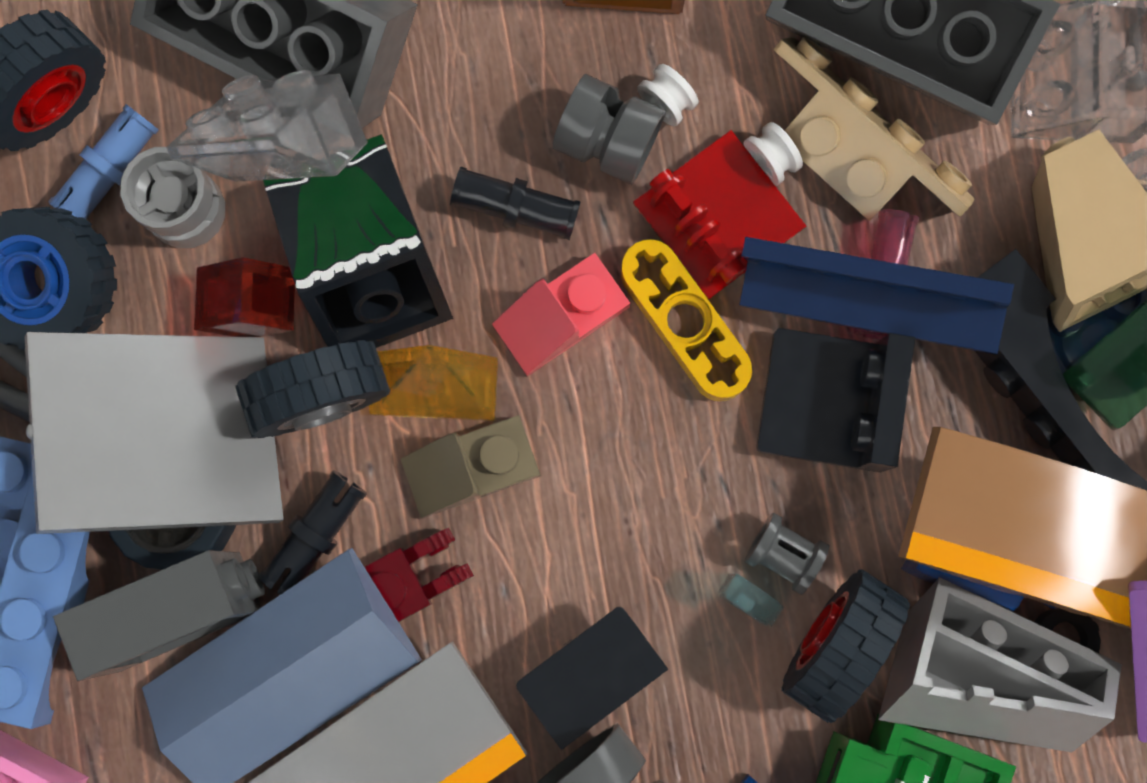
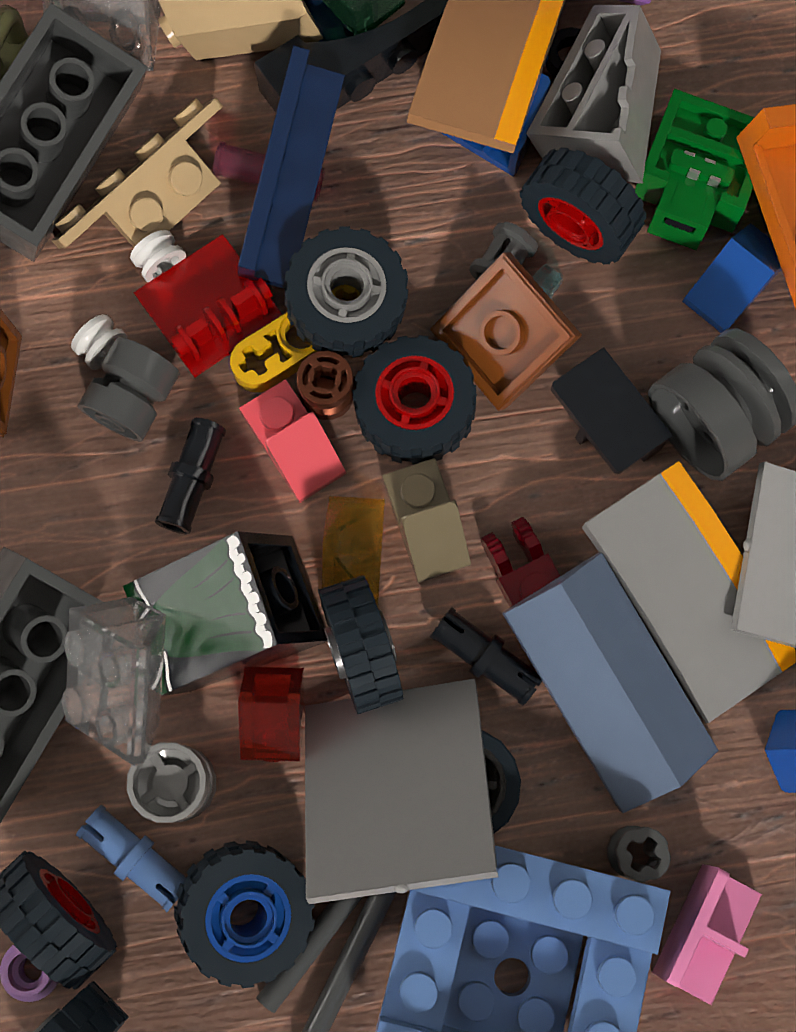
camera: 90 degrees left, 5 degrees down
(73, 703) = (655, 847): none -> dark grey bush
(159, 613) = (563, 780): dark grey window -> none
(614, 355) = (330, 396): none -> copper wheel
(616, 411) = (407, 368): none -> black wheel
(690, 553) = (506, 330): none -> dark orange tile
(752, 332) = (353, 260): none -> black wheel
(836, 399) = (382, 193): black bracket -> none

